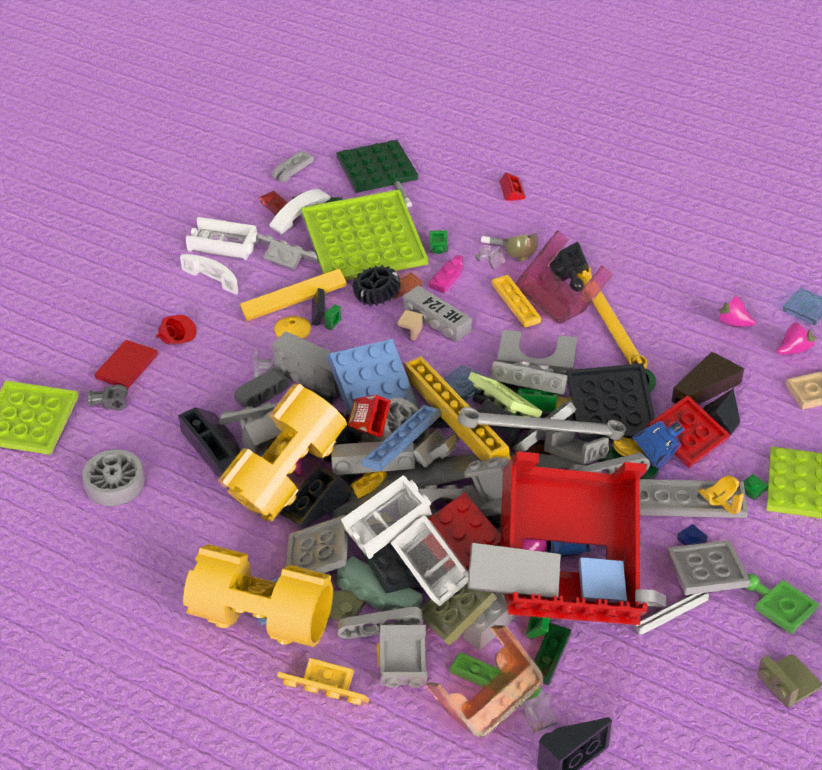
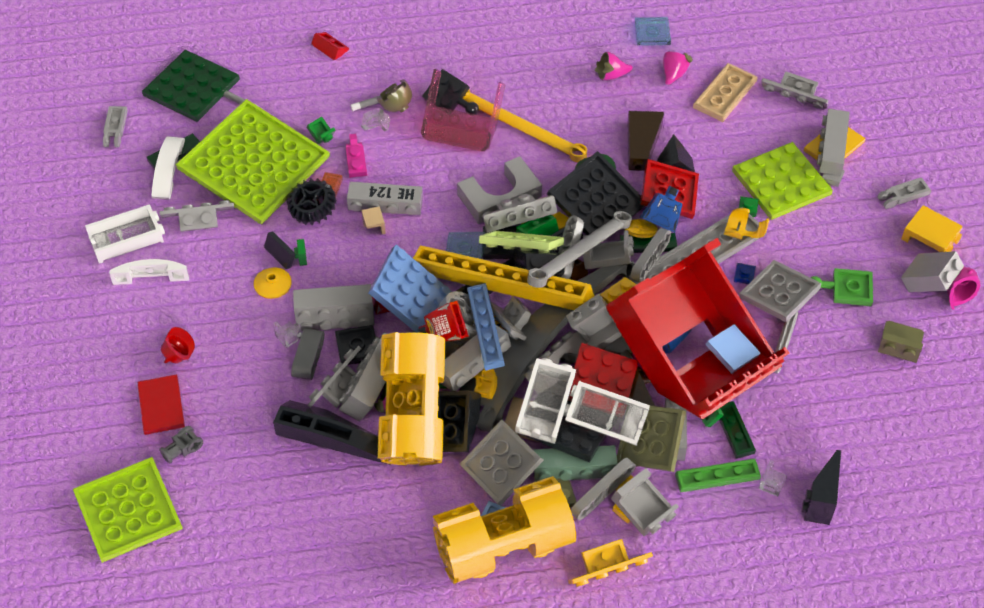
camera: 40 degrees left, 10 degrees up
(114, 483) = (264, 512): light grey piece -> none
(273, 202) = (137, 172): clear red plate -> none
(292, 295) = (245, 252): yellow tile -> none
(501, 696) = (739, 481): clear orange windscreen -> none
(513, 570) = (686, 383): tile -> none
(516, 301) = (436, 150): yellow plate -> none
(651, 597) = (780, 340): light grey beam -> none

